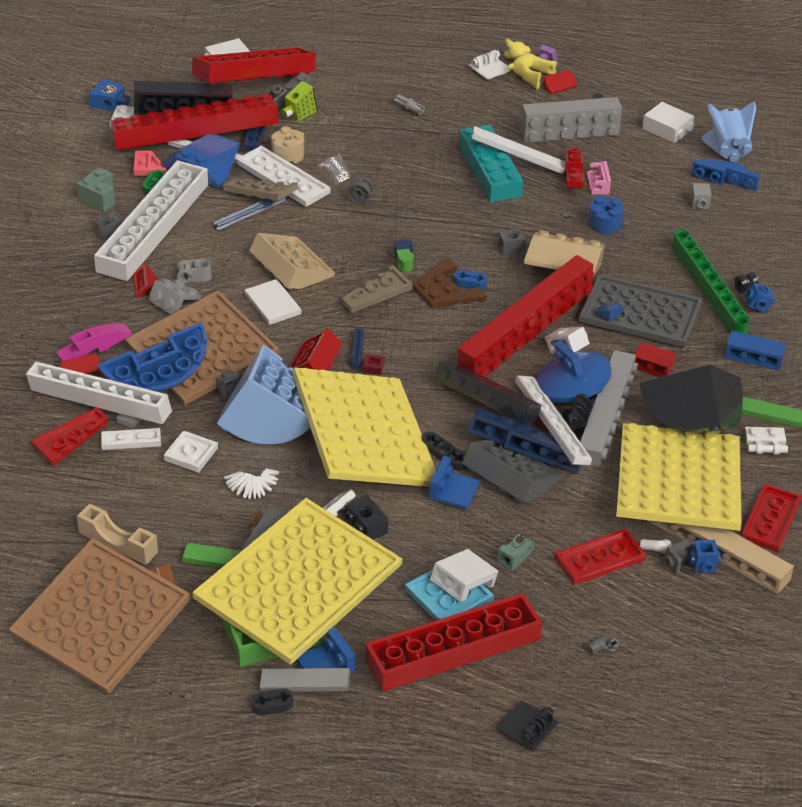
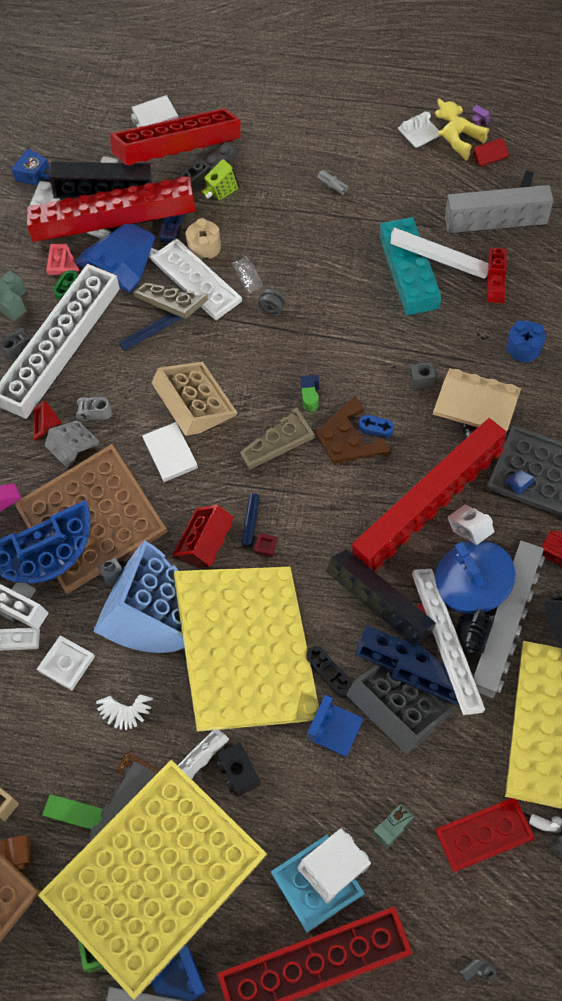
camera: 10 degrees right, 20 degrees up
(599, 179) = (522, 288): bright pink hinge -> none

